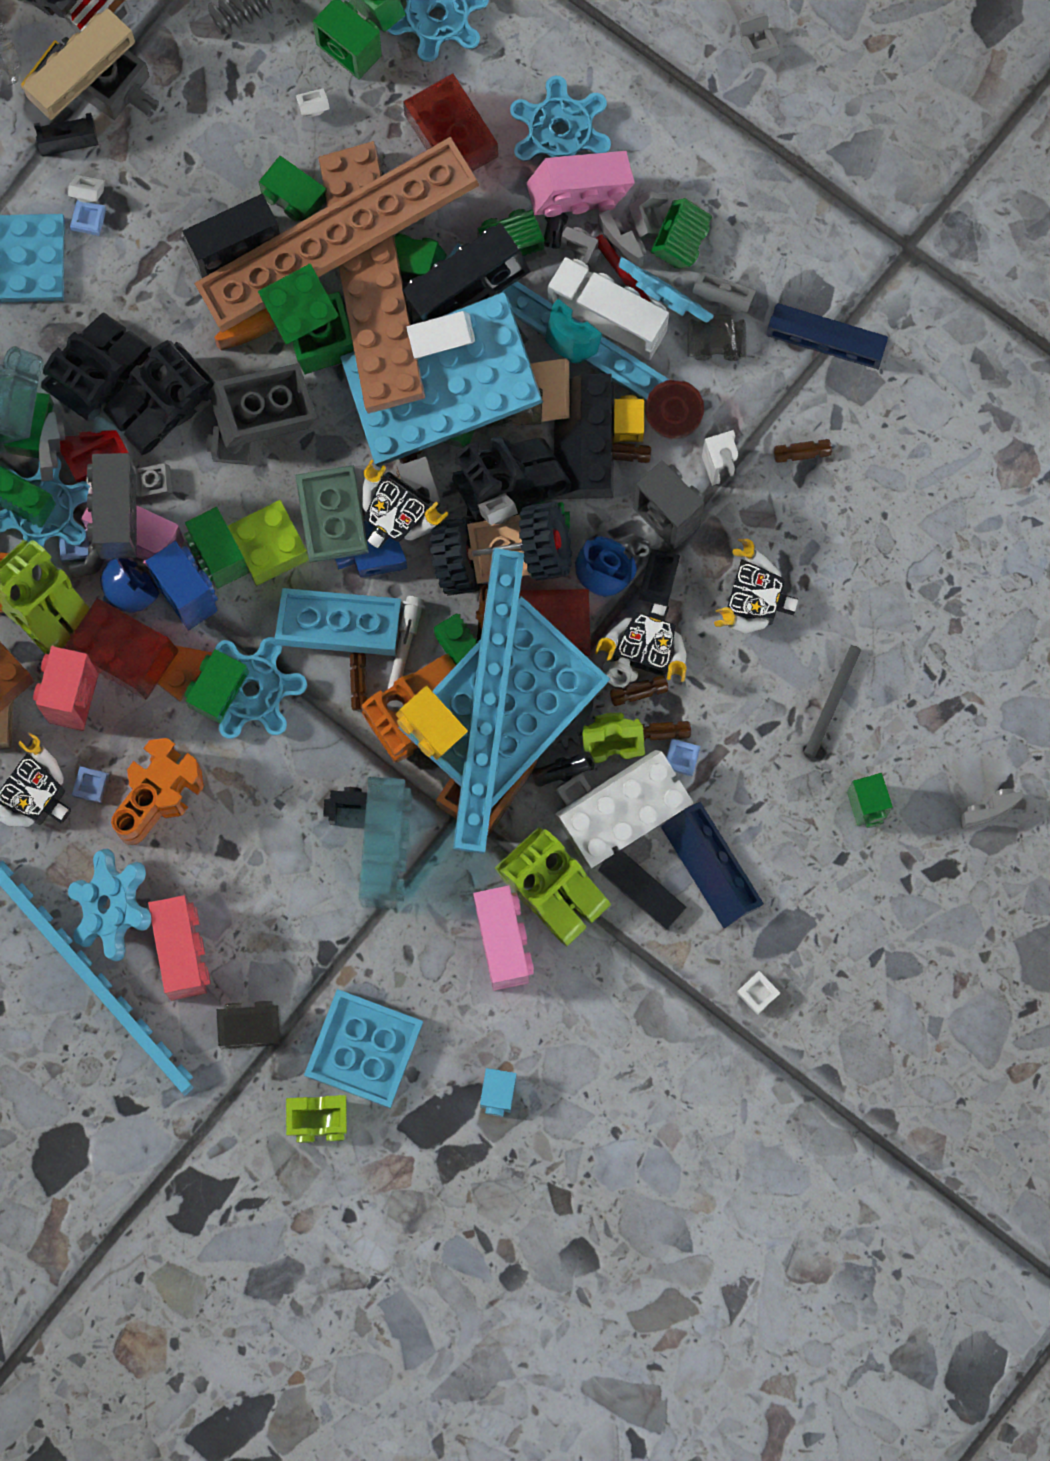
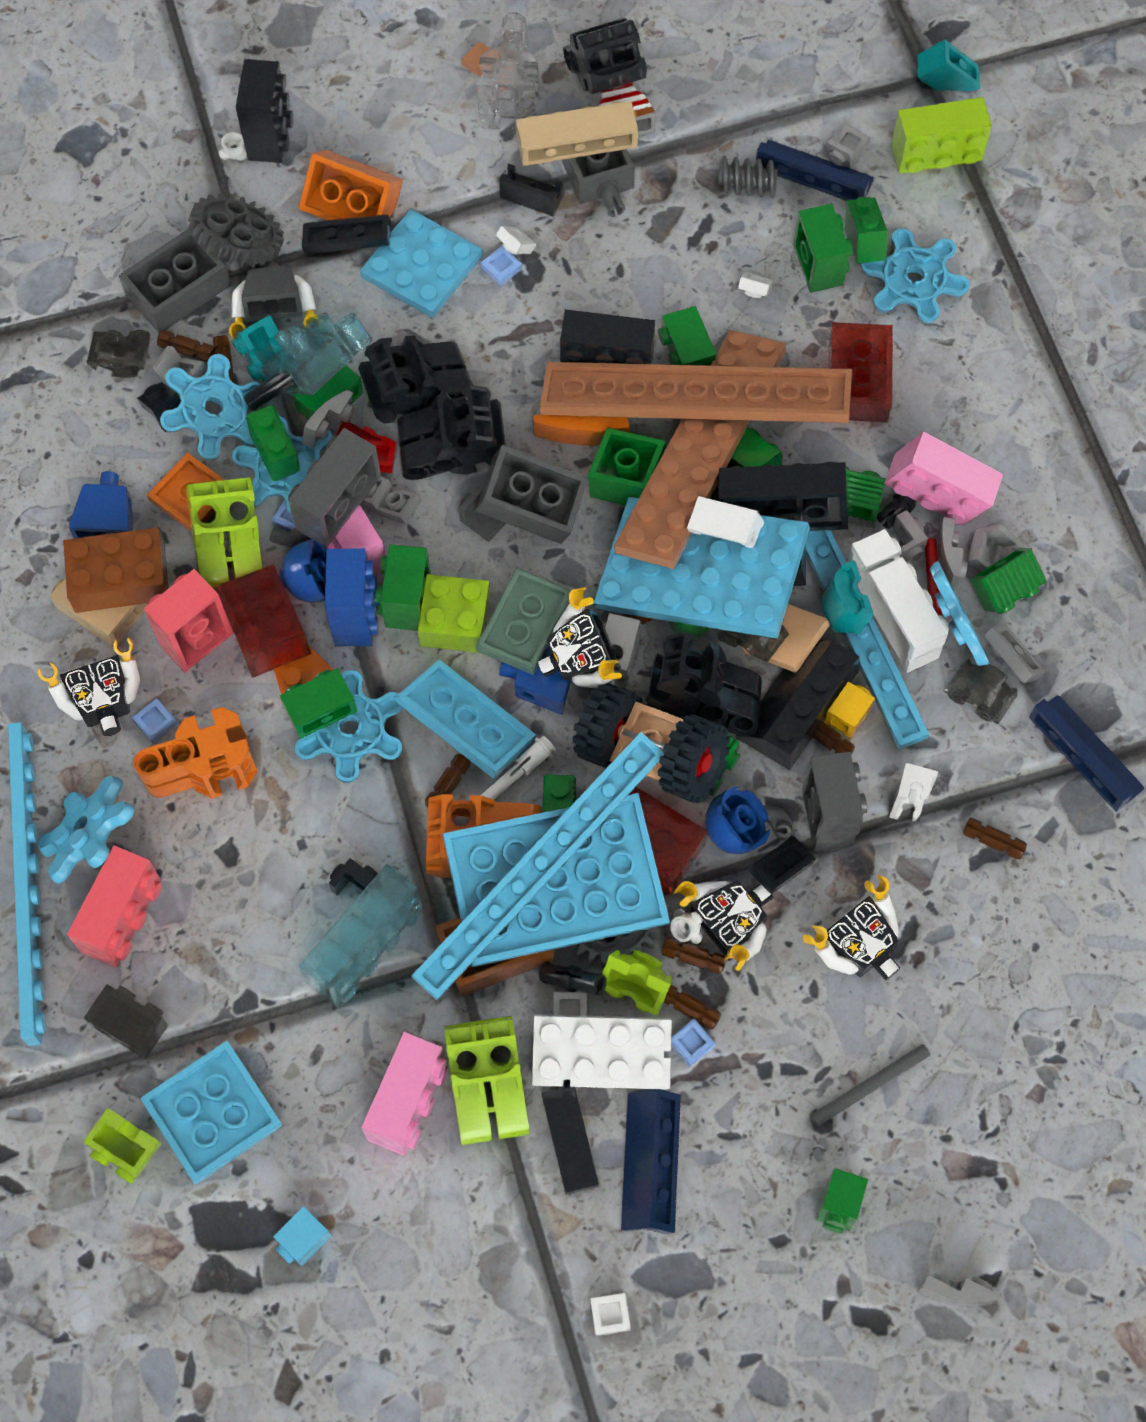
camera: 35 degrees right, 10 degrees down
(298, 304) = (619, 424): green brick -> none
(430, 723) = (470, 848): yellow brick -> none
(498, 509) = (669, 703): light grey plate -> none
(555, 109) = (965, 412): medium azure plate -> none
(674, 409) = (898, 725): clear red tile -> none

